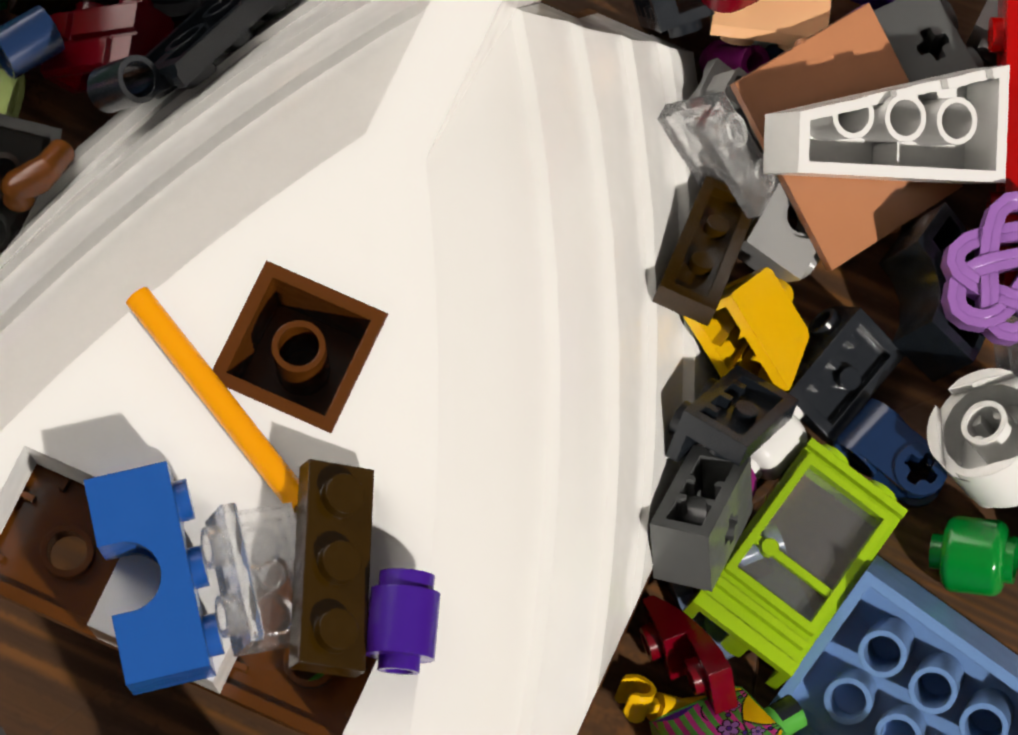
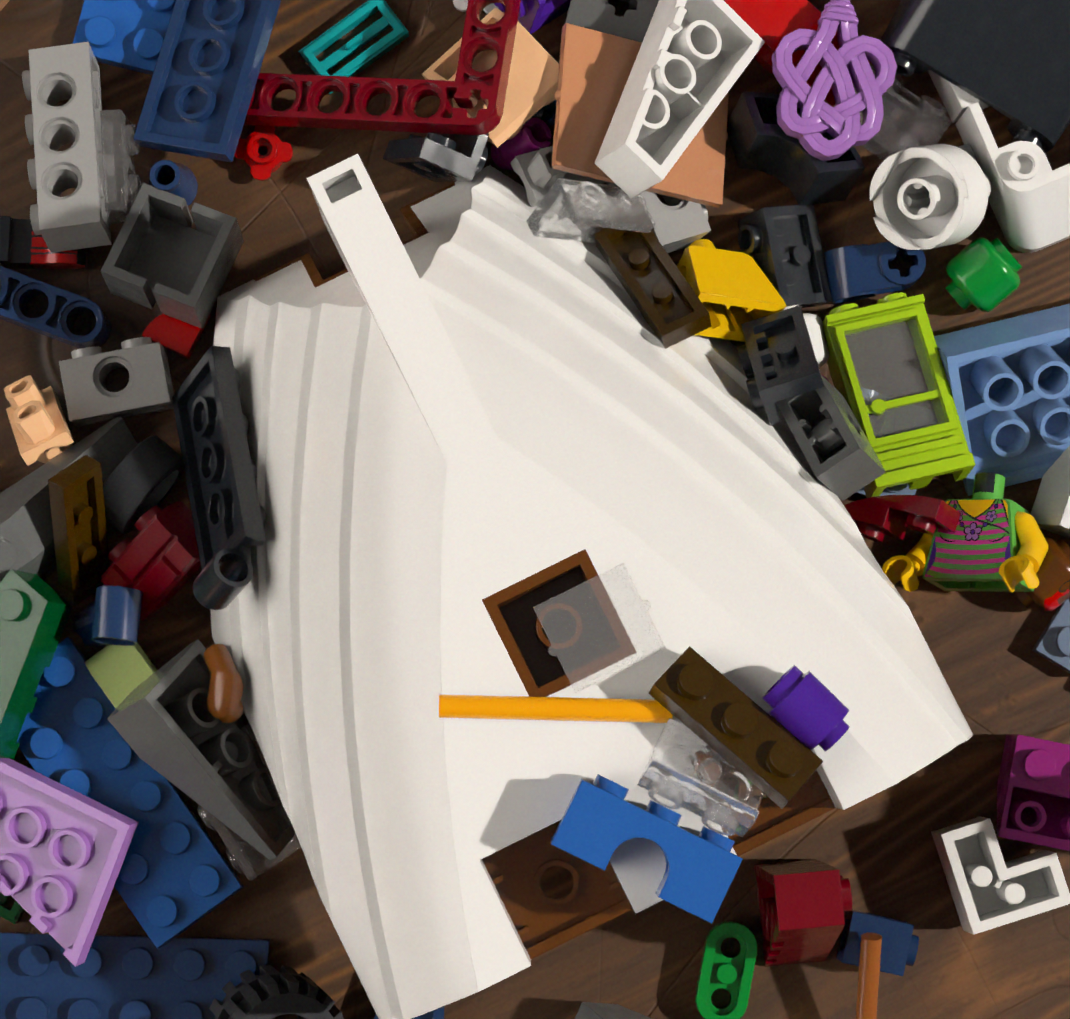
camera: 50 degrees left, 10 degrees up
(325, 381) = (599, 628): none -> clear piece

